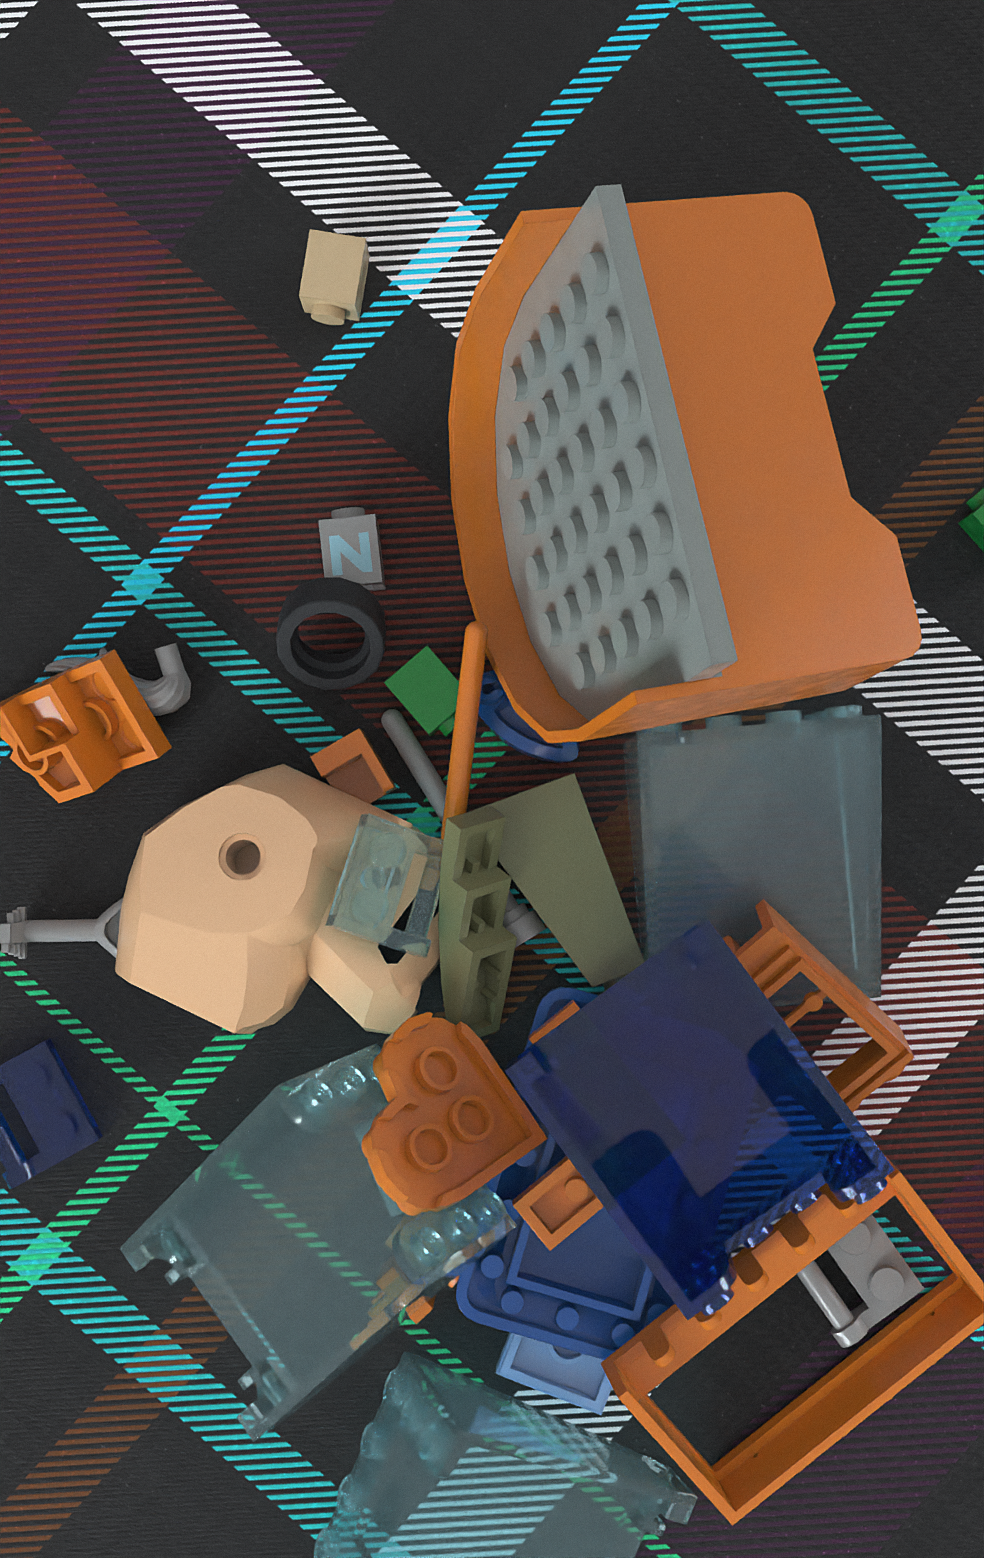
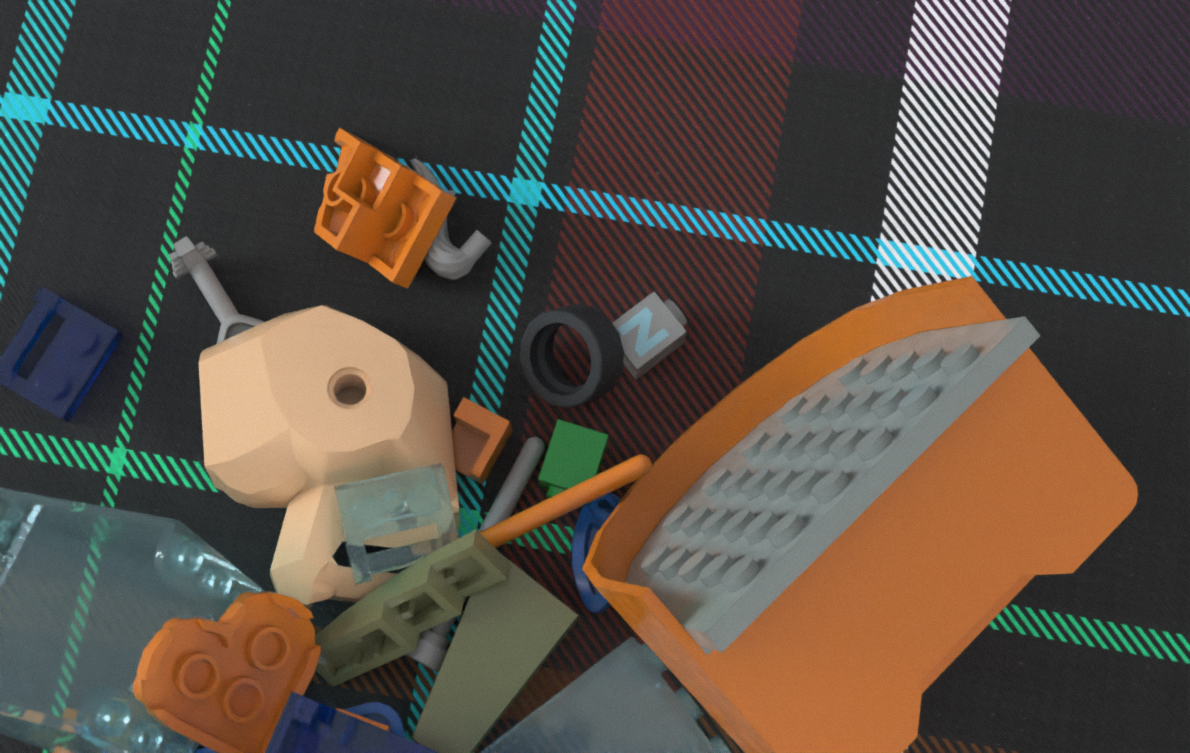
camera: 60 degrees right, 10 degrees down
(334, 277) = (852, 191): tan brick -> none

